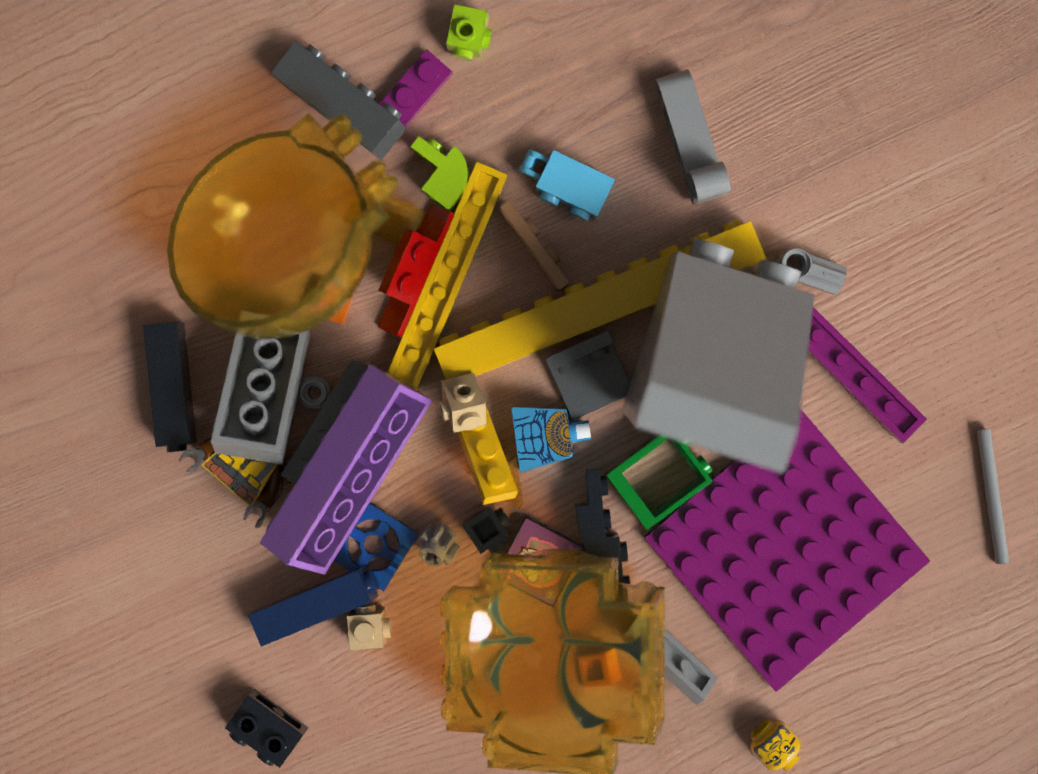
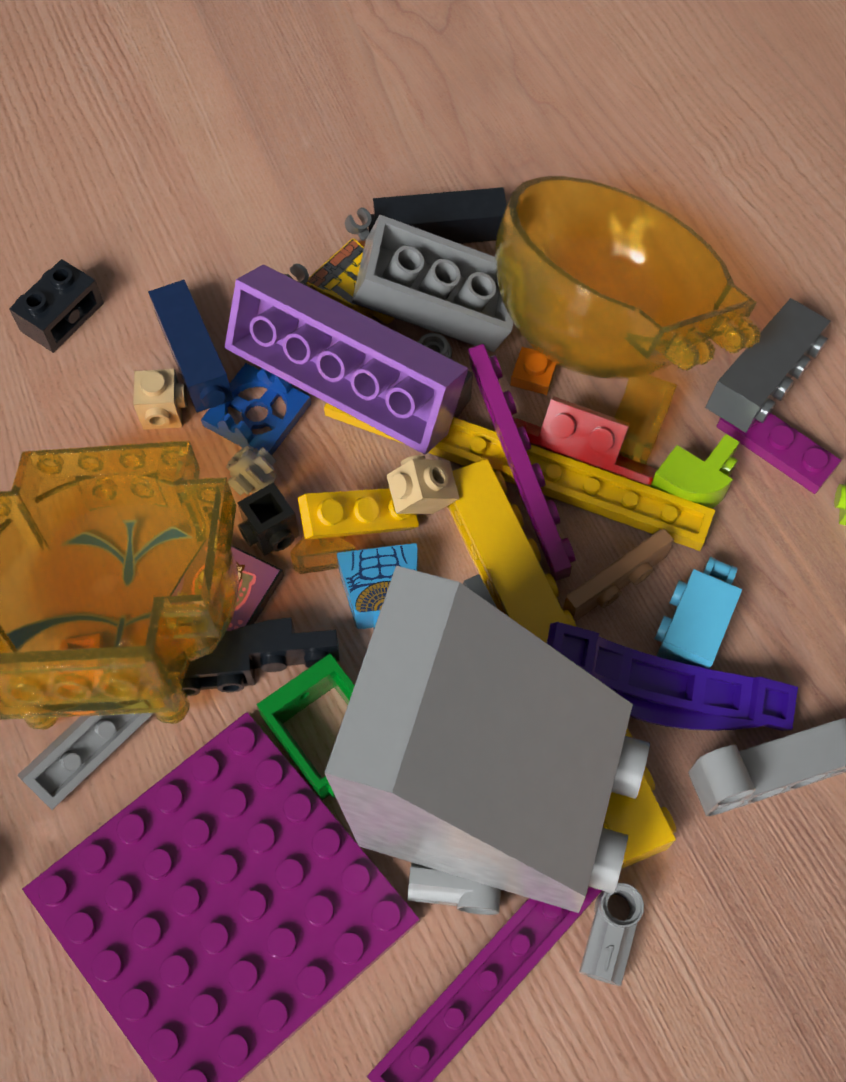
camera: 90 degrees right, 25 degrees down
(424, 325) = (528, 477): none -> magenta plate
(633, 216) = (676, 692): none -> dark purple piece

